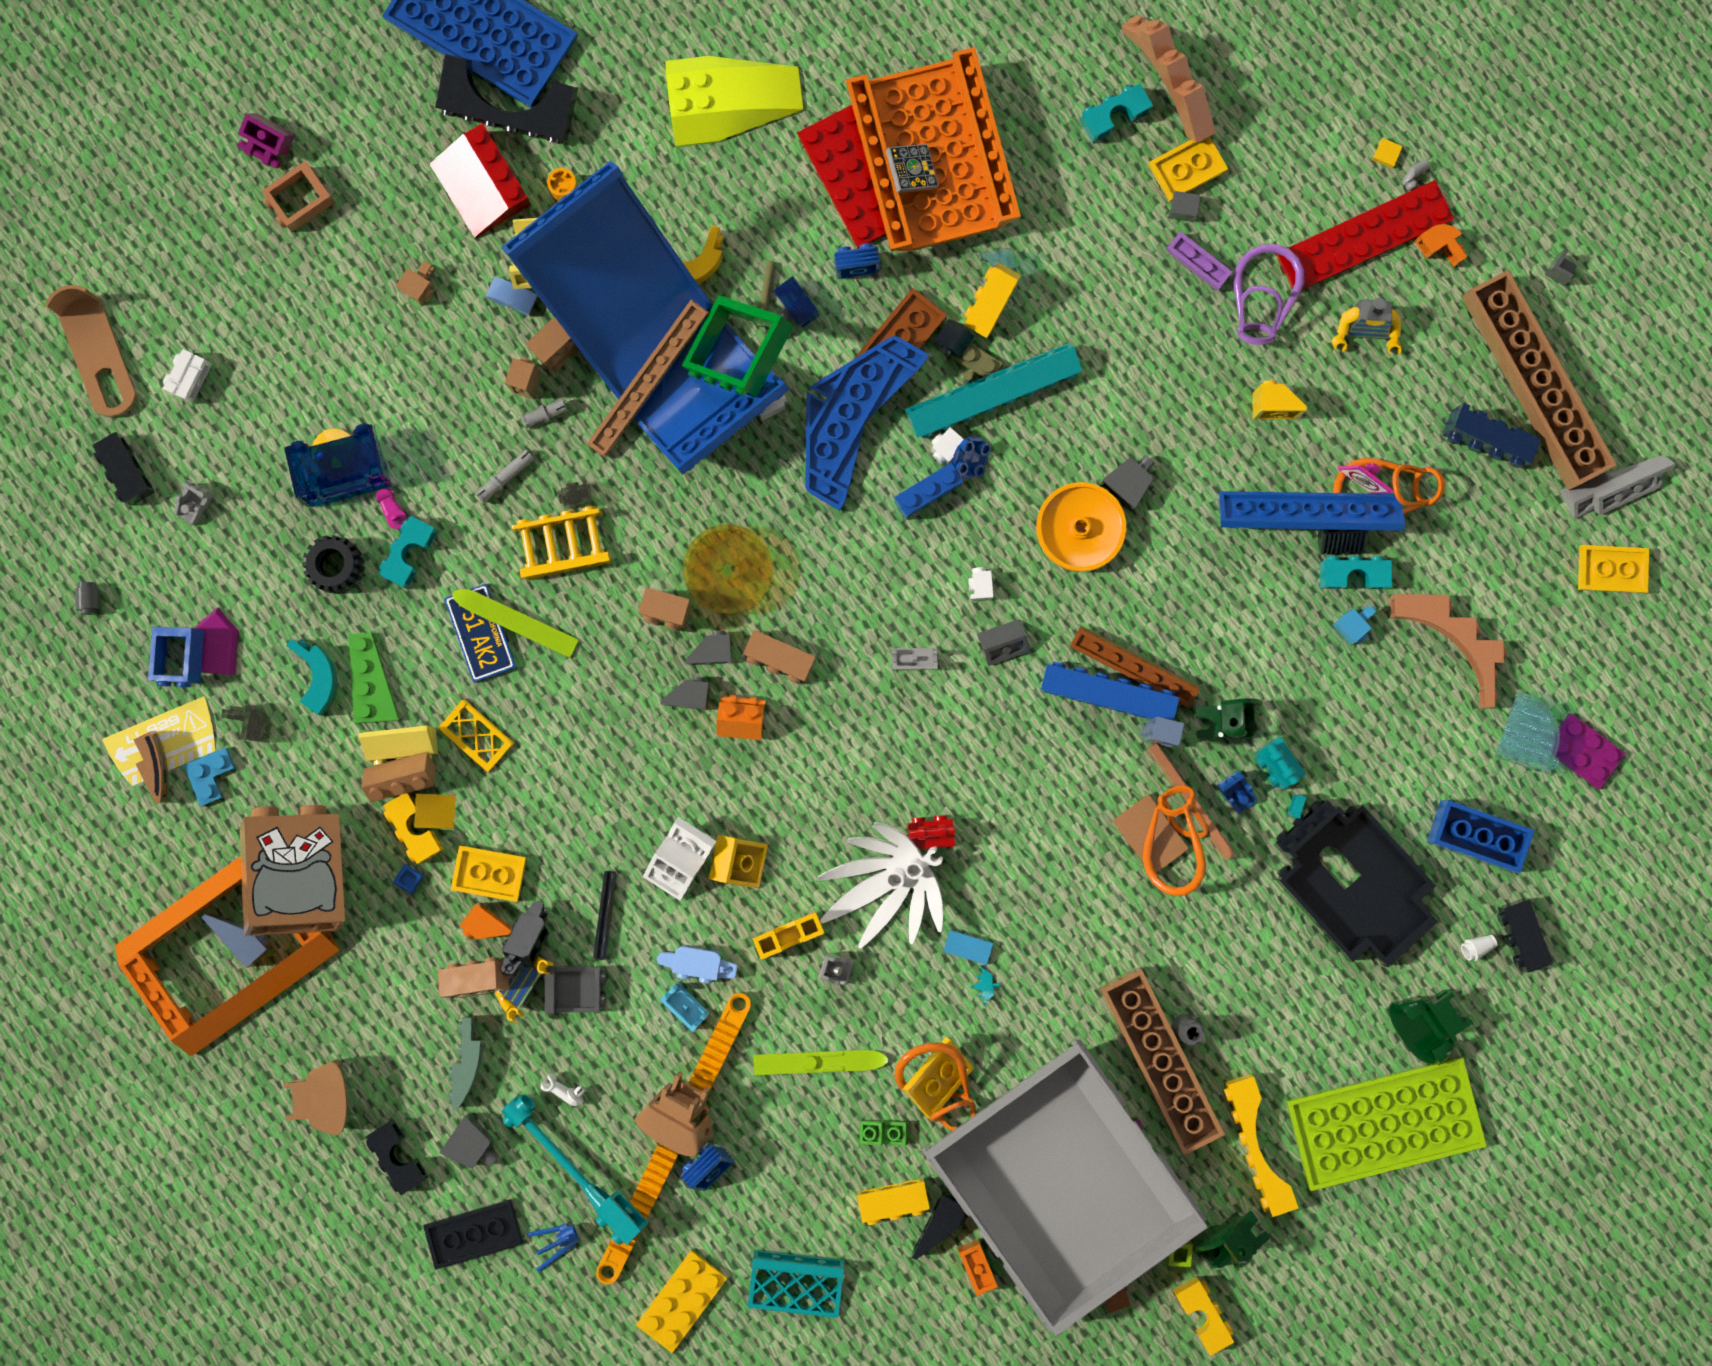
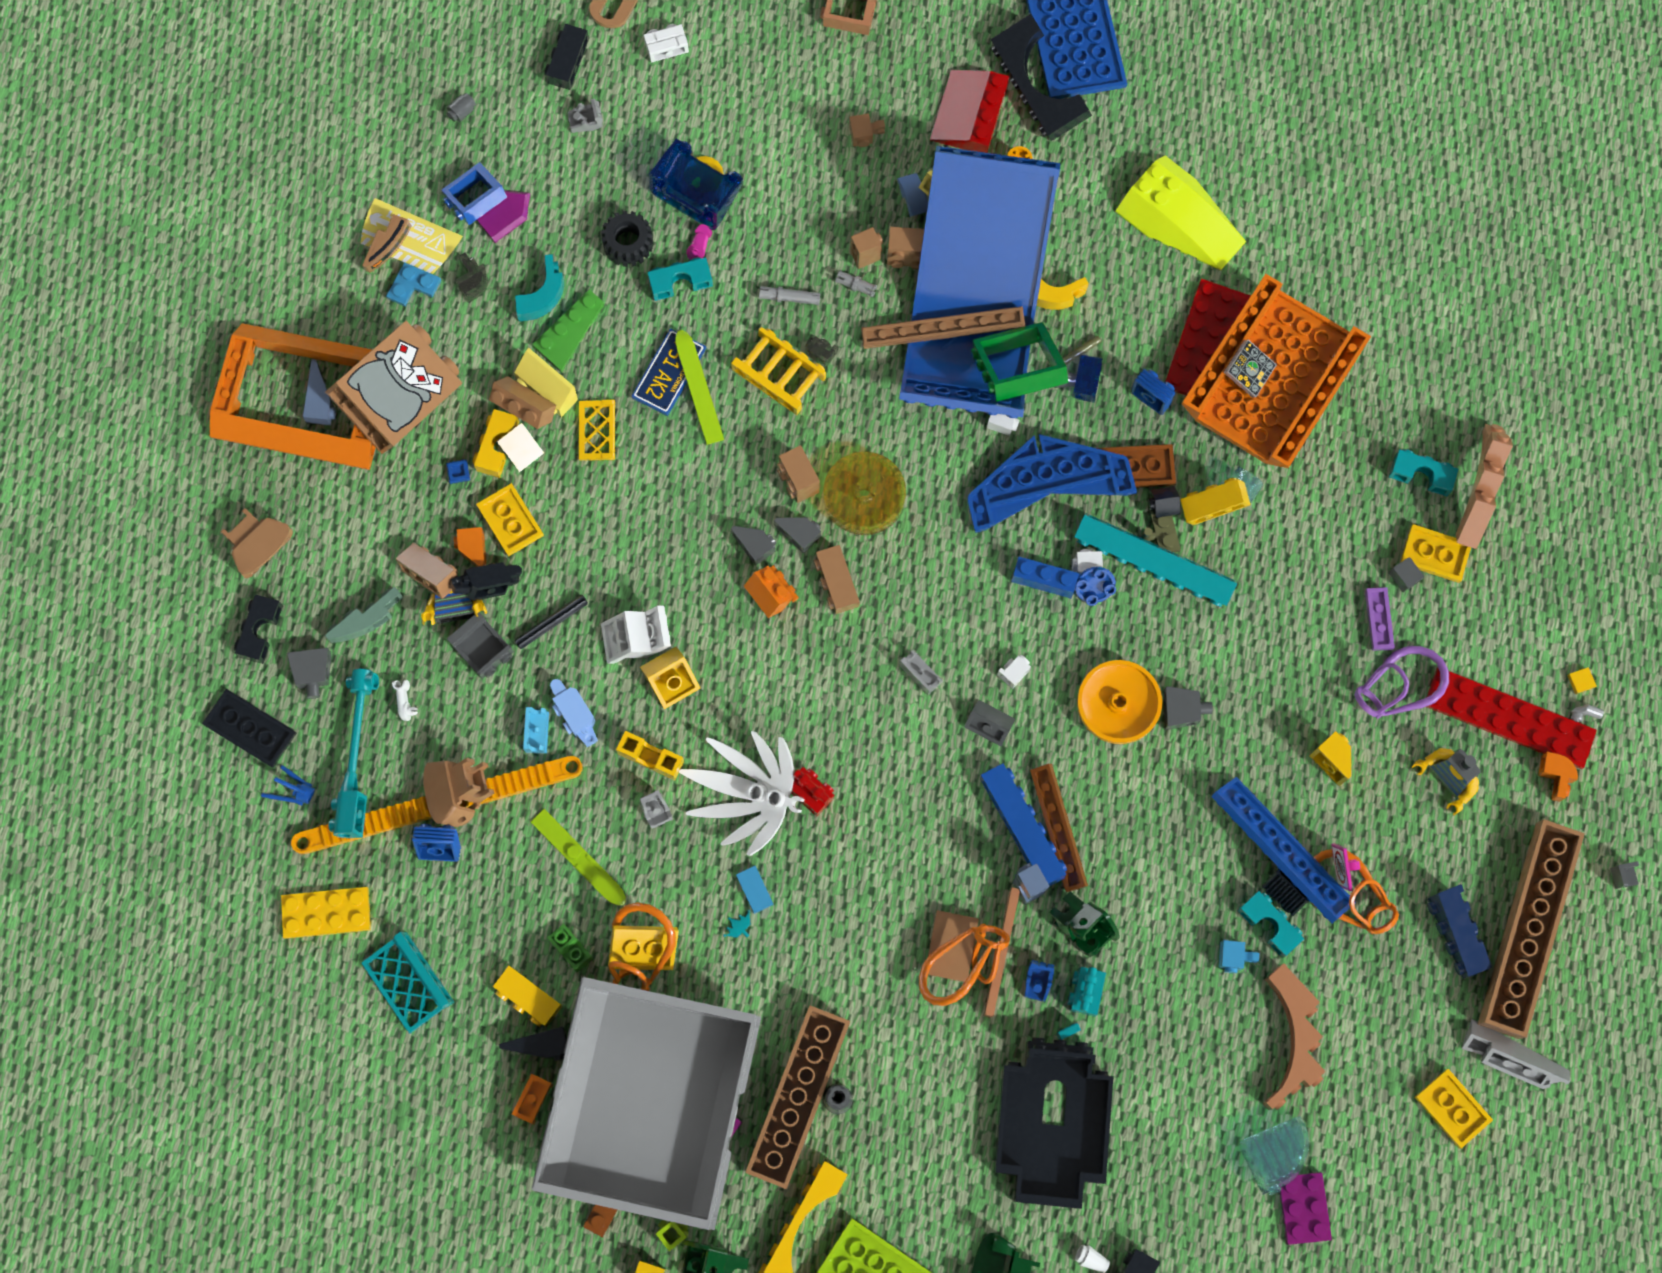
camera: 45 degrees right, 10 degrees down
(1480, 836) = (1171, 1184): blue brick -> none

